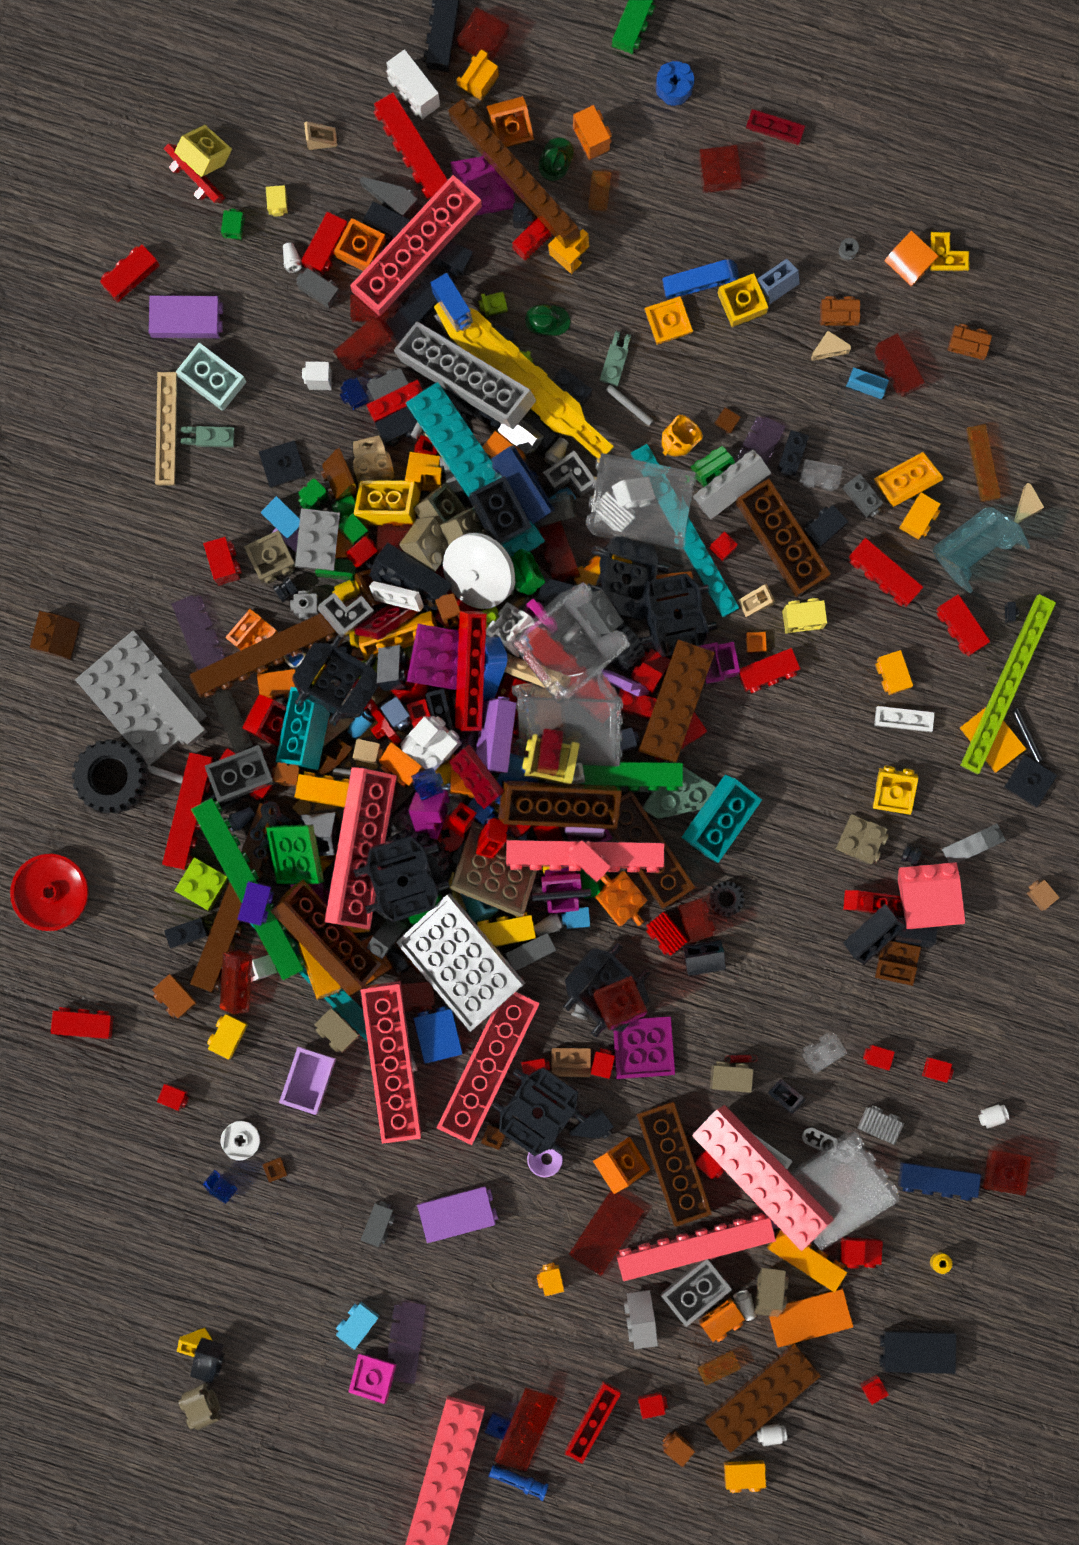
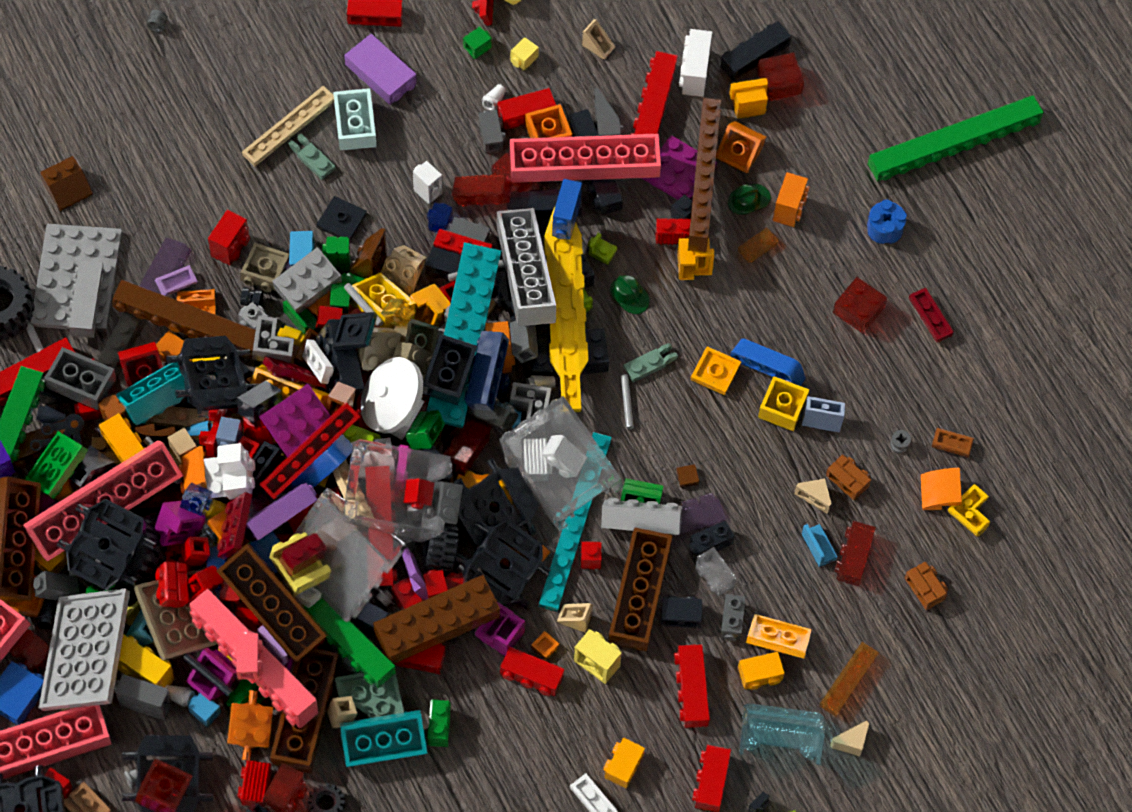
camera: 40 degrees right, 20 degrees down
(217, 630) = (176, 280): none -> lavender tile
(379, 519) = (361, 302): none -> light grey bar
(406, 550) = (354, 331): none -> black plate
(416, 502) = (398, 312): none -> clear yellow brick
(473, 859) = (172, 584): none -> red brick
(576, 625) = (418, 493): none -> red brick
(673, 827) = (341, 711): none -> tan brick
(680, 436) = (639, 451): light orange helmet -> none
(744, 769) = (439, 723): none -> green brick
(884, 214) = (952, 442): none -> dark orange plate

